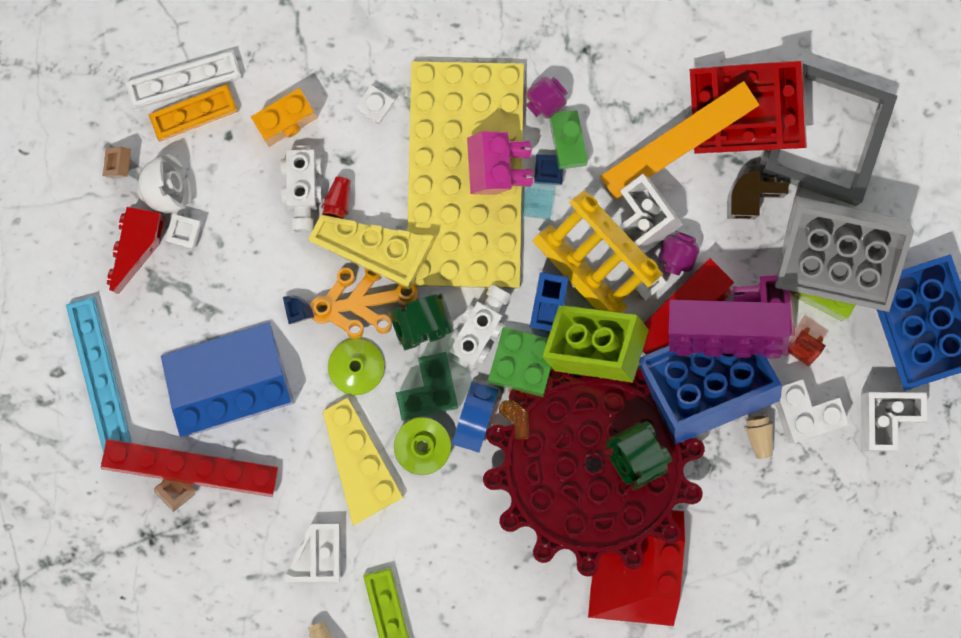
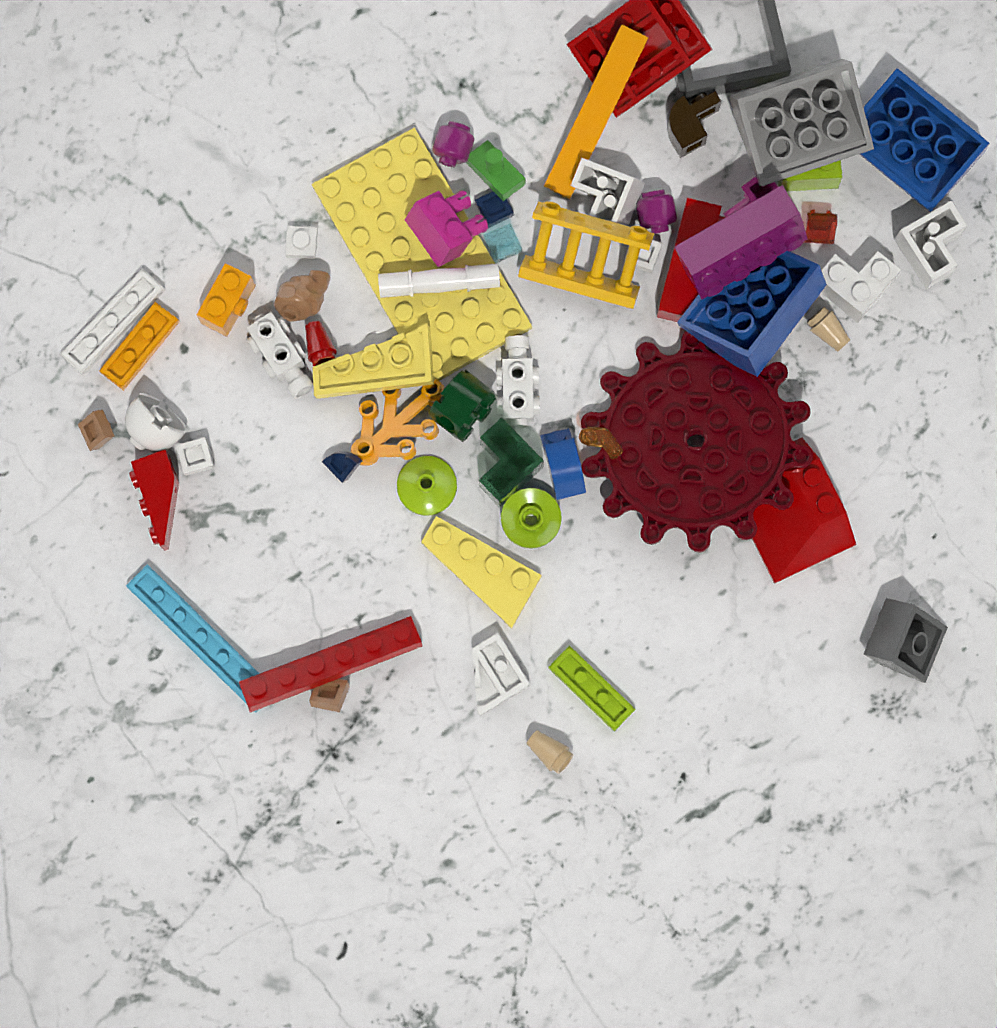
camera: 25 degrees left, 5 degrees down
(226, 380) = (316, 566): blue slope -> none
(347, 151) = (302, 295): none -> medium nougat head
(464, 206) = (439, 280): none -> white piece
(520, 362) = (576, 389): bright green plate -> none
(548, 297) = (565, 320): blue brick -> none
(595, 343) = (631, 330): lime brick -> none
(638, 455) = (730, 403): dark green brick -> none

